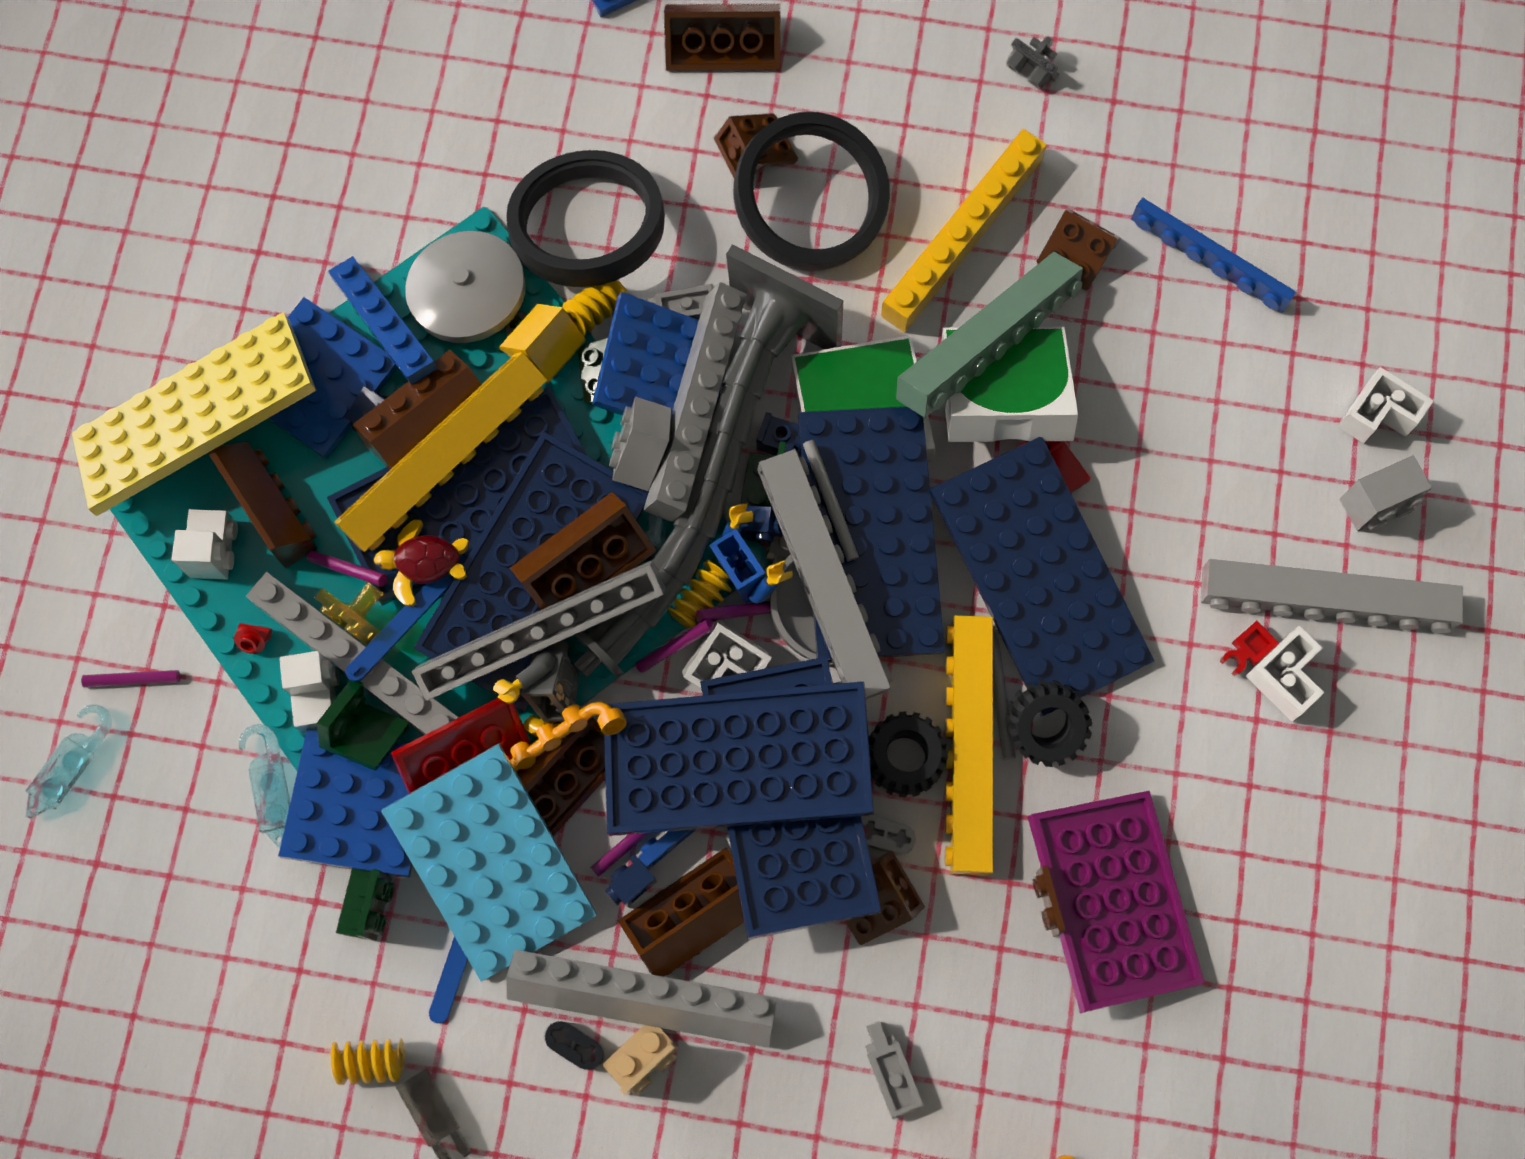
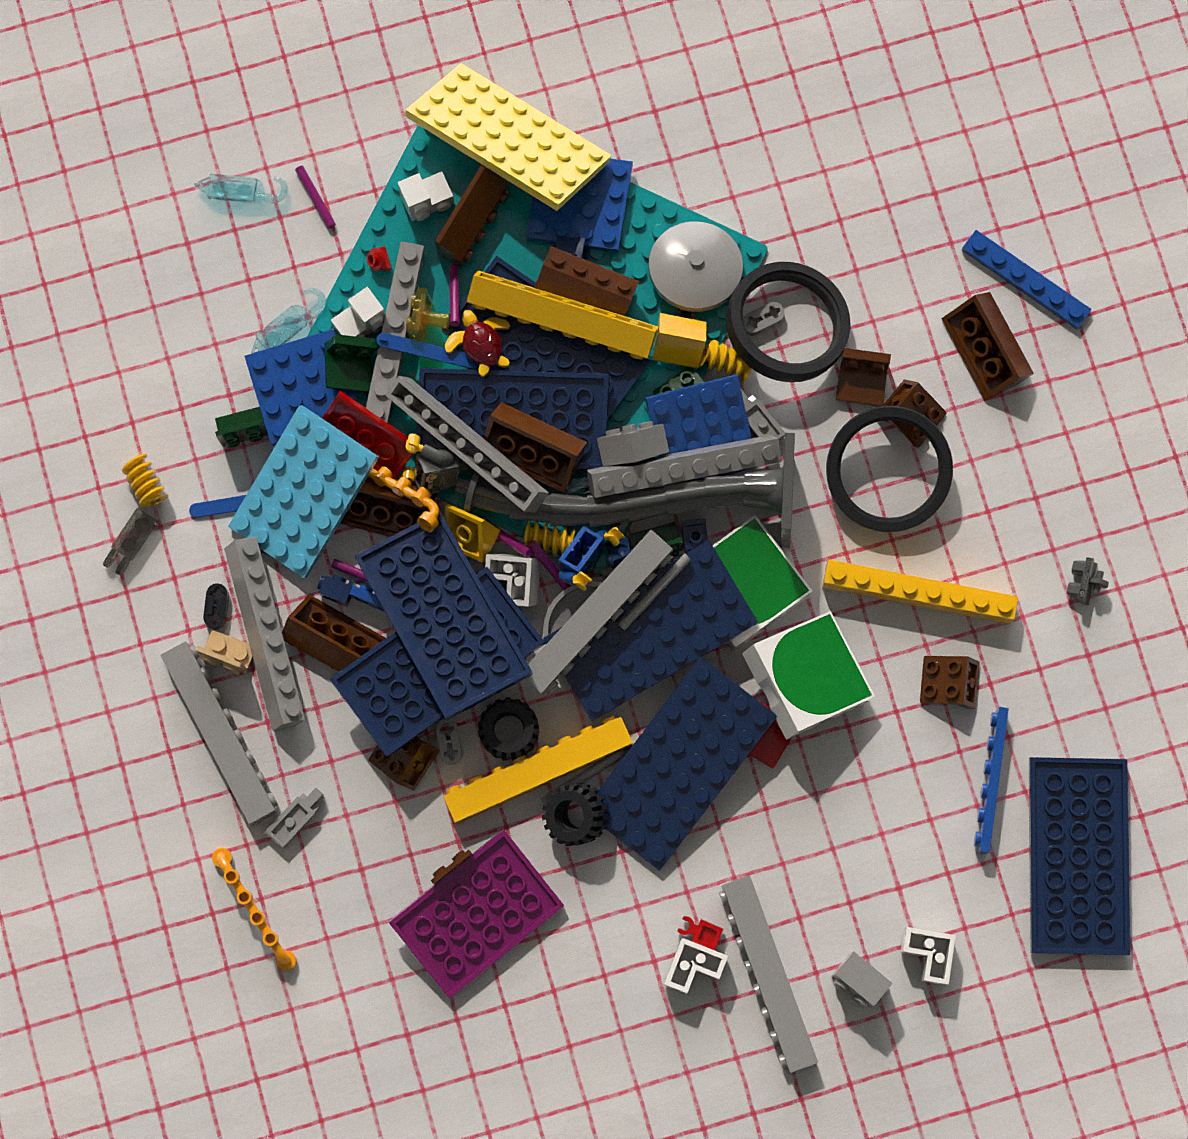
camera: 65 degrees right, 5 degrees up
(382, 320) = (639, 223): blue plate -> none
(572, 245) = (761, 313): none -> light grey beam
(646, 679) = (471, 532): none -> yellow slope
(688, 174) = (862, 377): none -> reddish brown bracket
(738, 1118) = (219, 733): none -> light grey brick
(988, 334) = (837, 645): sand green brick -> none
(1336, 209) = (1079, 856): none -> dark blue plate

